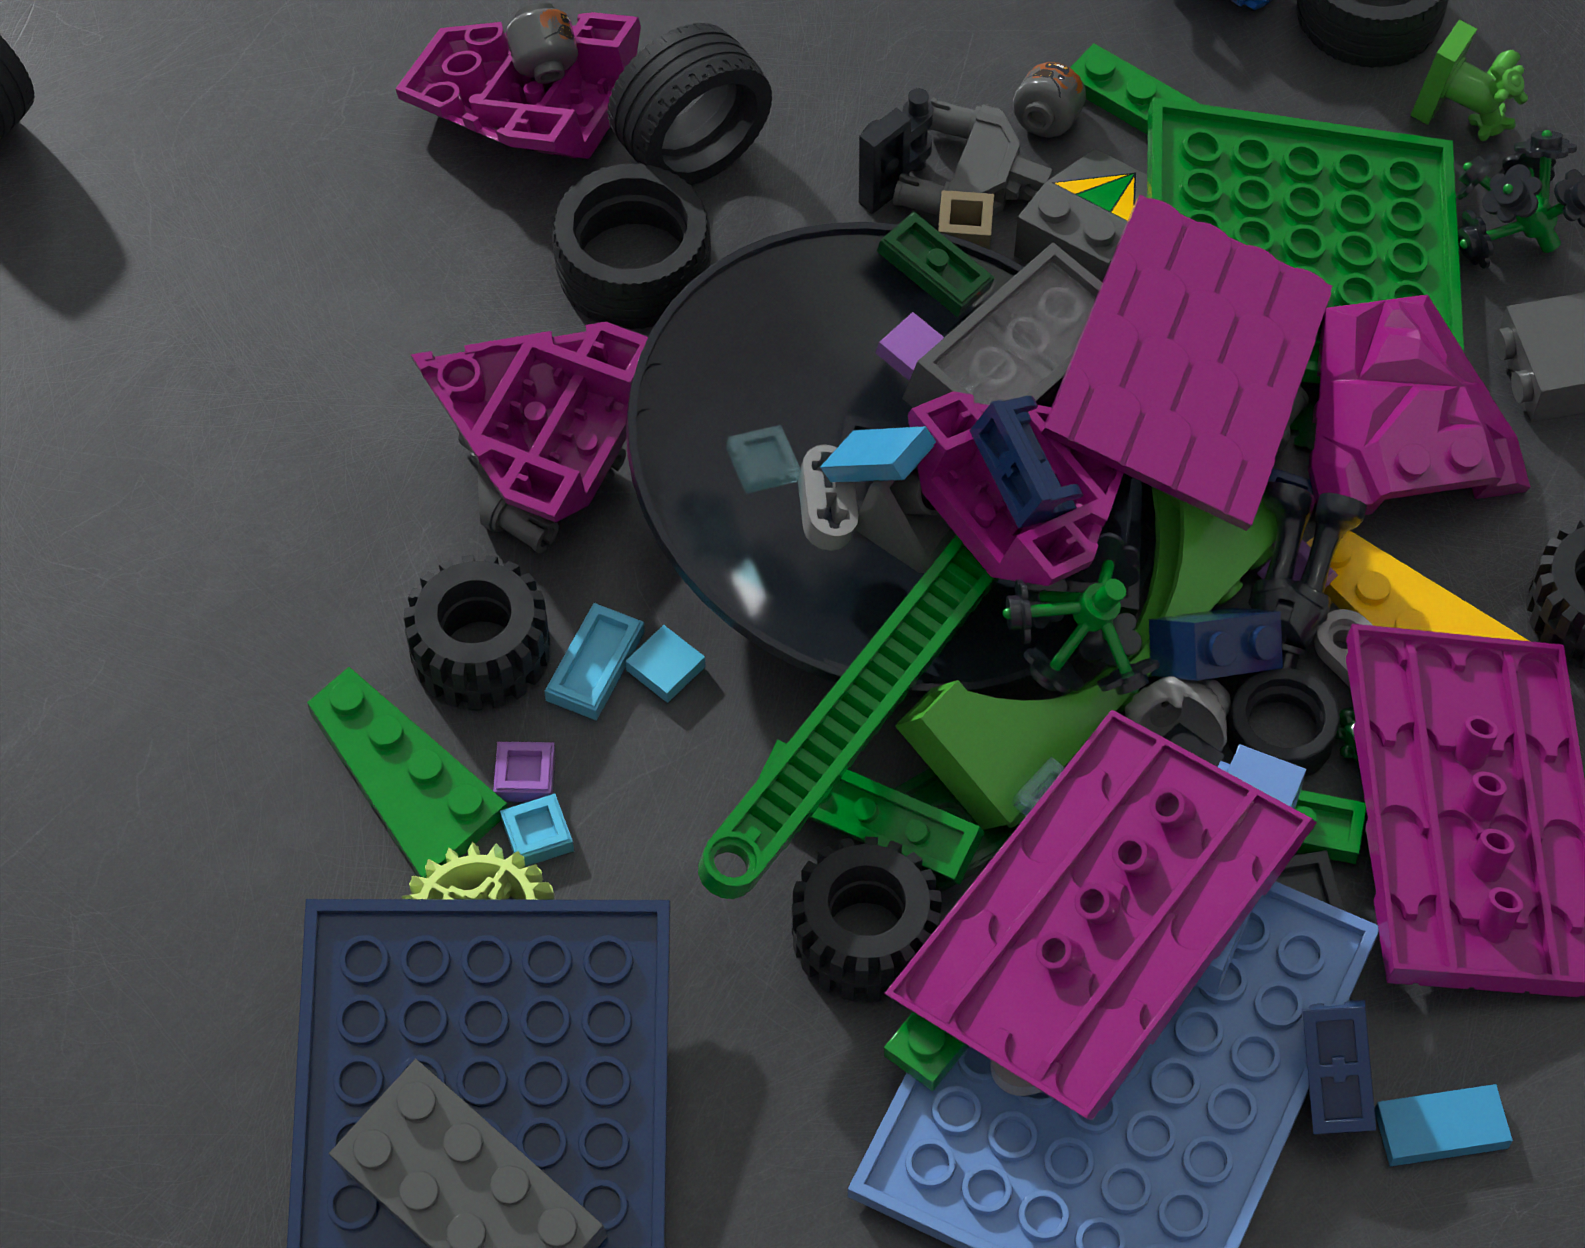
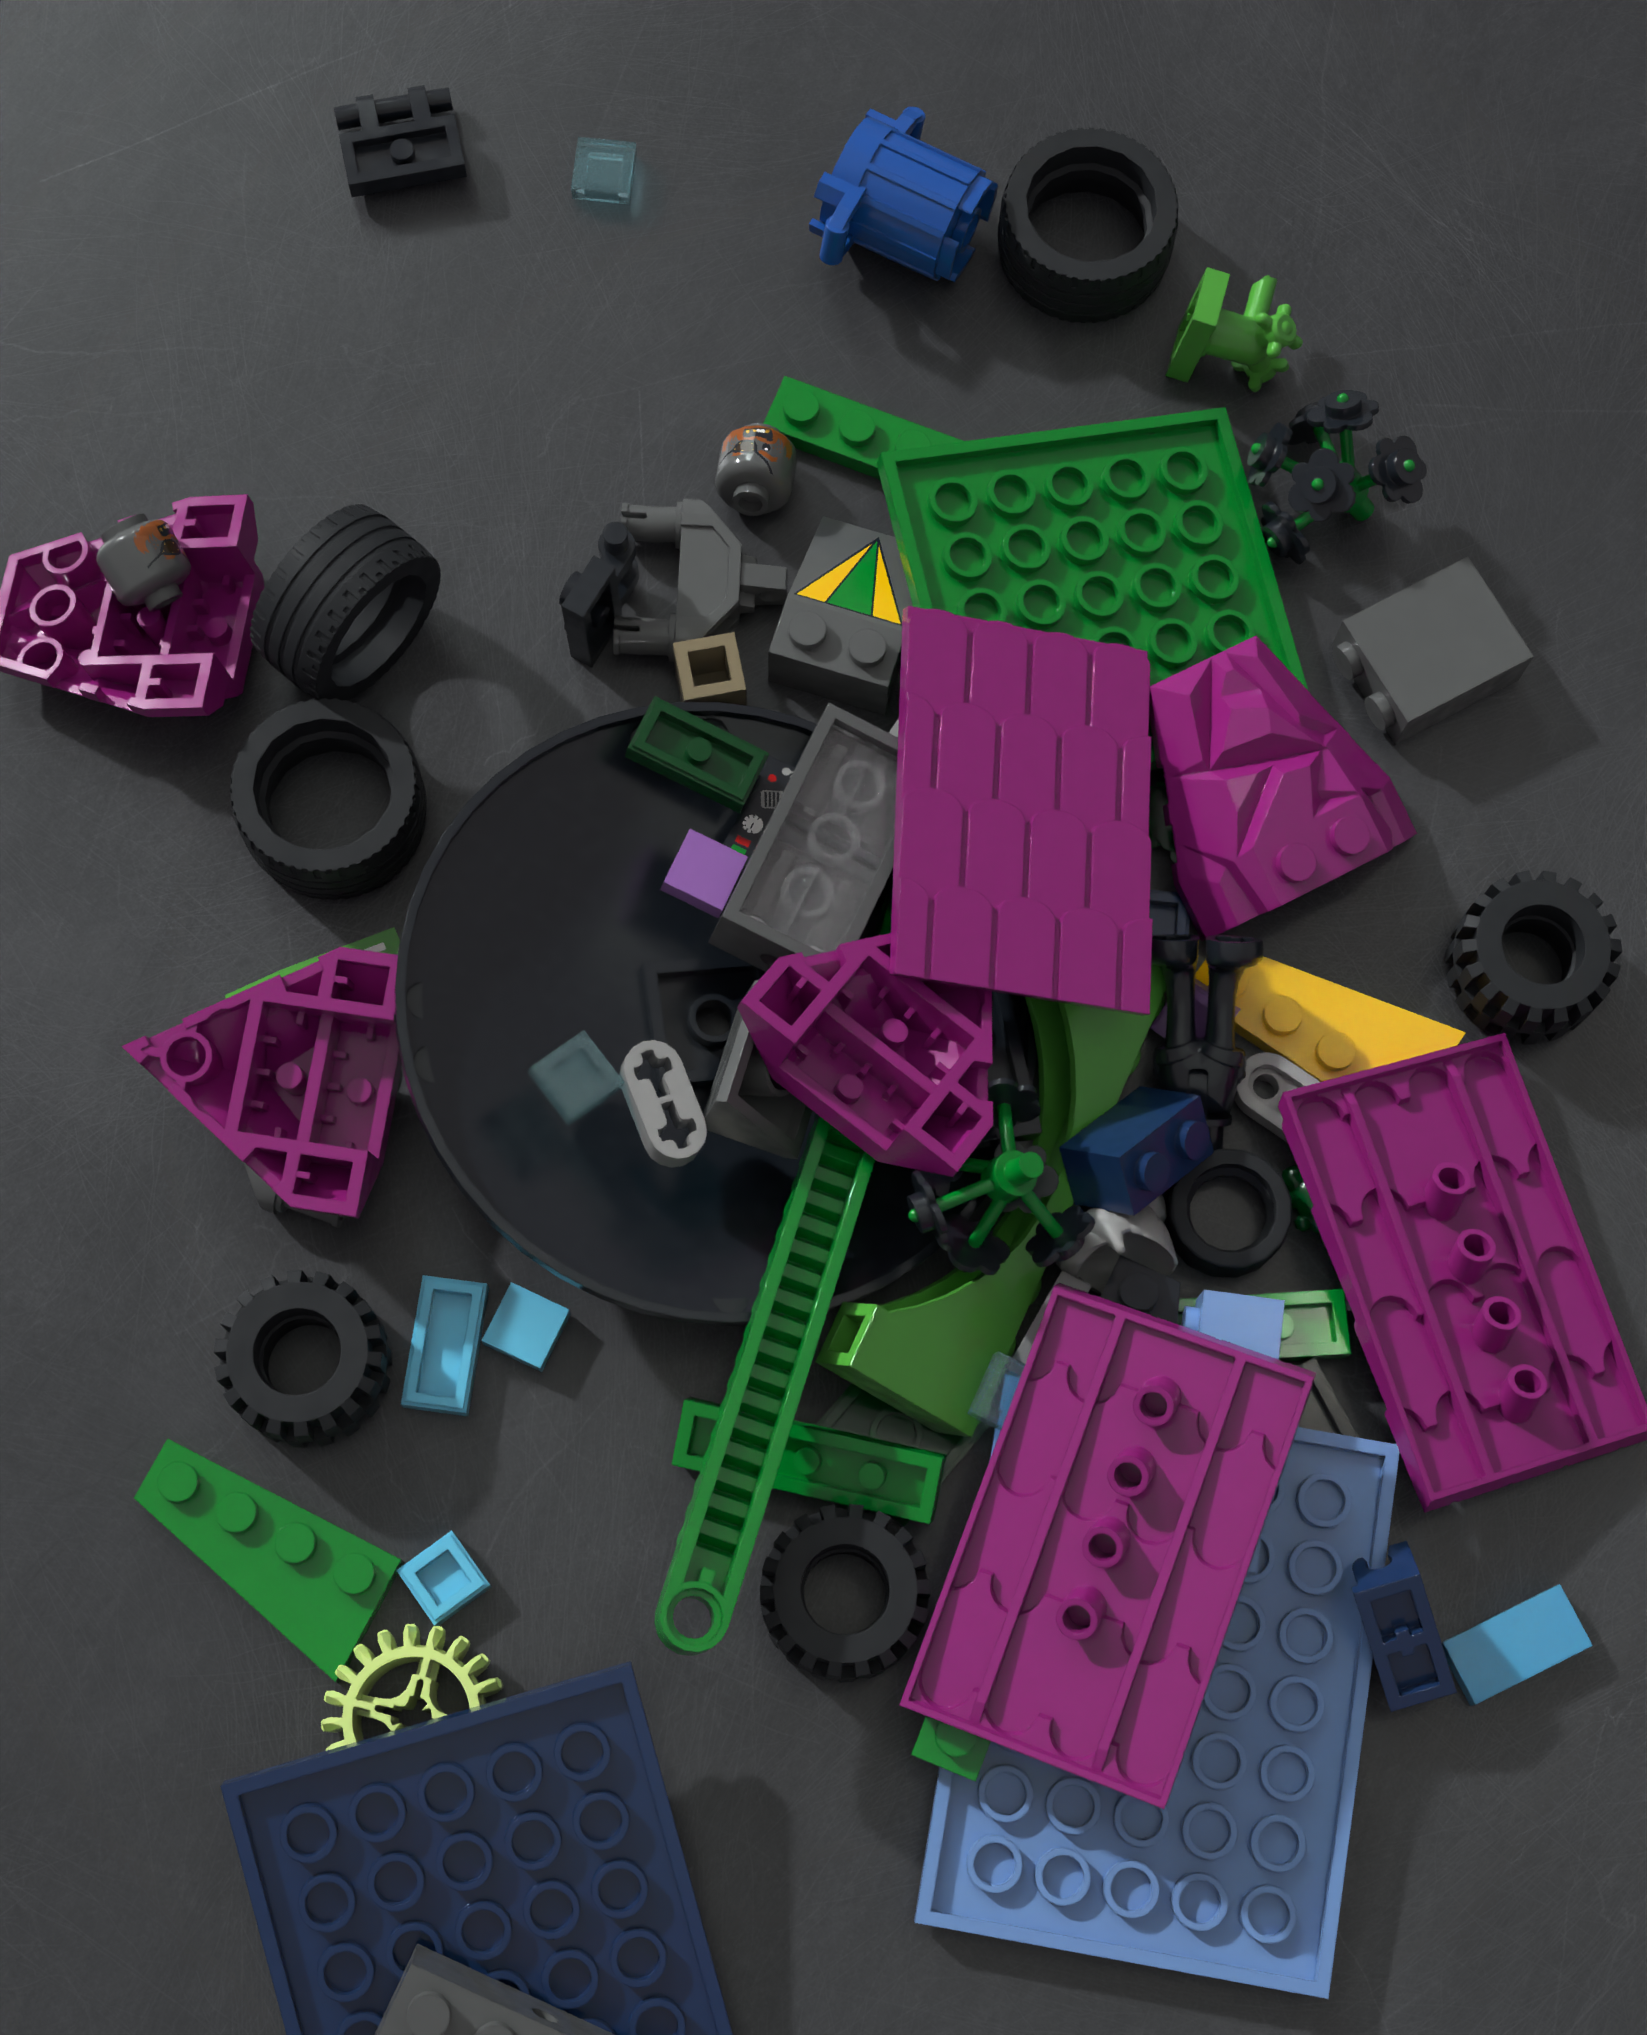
camera: 20 degrees left, 15 degrees up
(524, 770) = (407, 1508): medium lavender tile -> none
(878, 454) = (713, 1057): dark azure tile -> none
(1020, 463) = (884, 1034): dark blue hinge -> none

